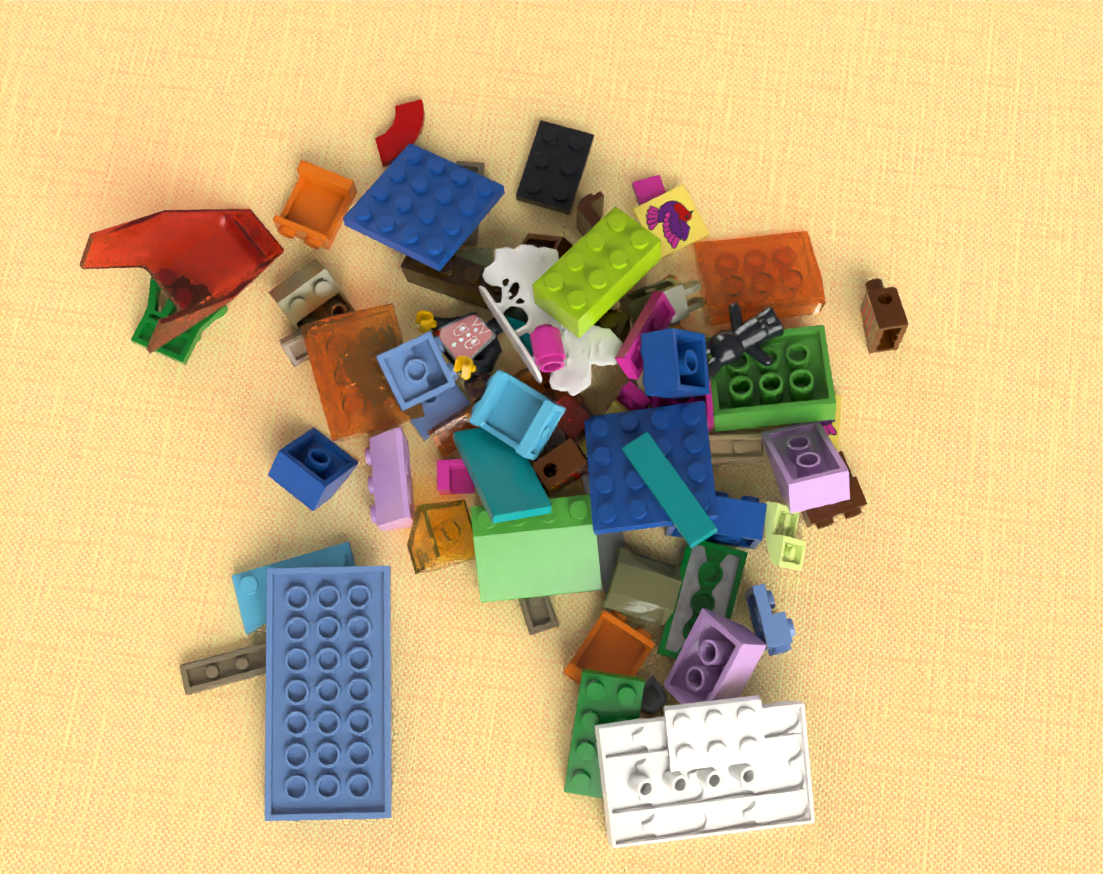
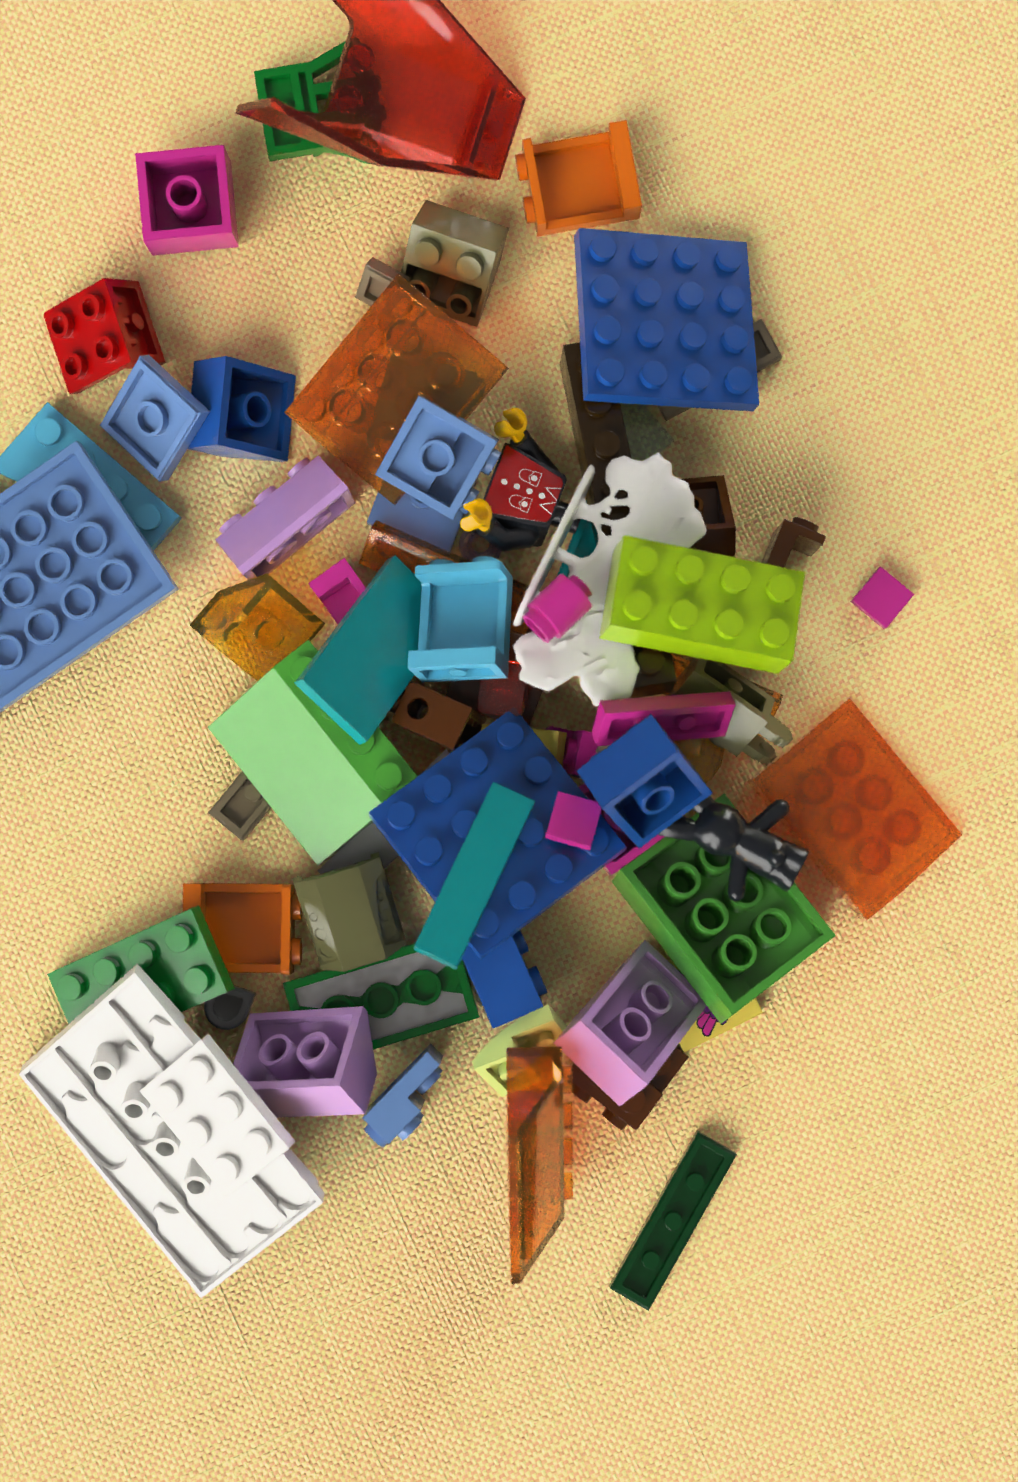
camera: 60 degrees right, 10 degrees up
(175, 420) = (187, 200): none -> dark pink brick
(214, 519) = (101, 332): none -> red bracket
(284, 517) = (154, 418): none -> medium blue plate
(404, 131) = (756, 224): red tile -> none
(555, 167) = (837, 451): black plate -> none
(672, 220) = (857, 650): tile -> none
(672, 417) = (573, 821): none -> dark pink tile
(737, 449) = (605, 920): tan tile -> none
(845, 562) = (537, 1151): none -> clear orange slope
(882, 317) = (900, 1003): reddish brown torso -> none
(930, 519) = (672, 1220): none -> dark green tile

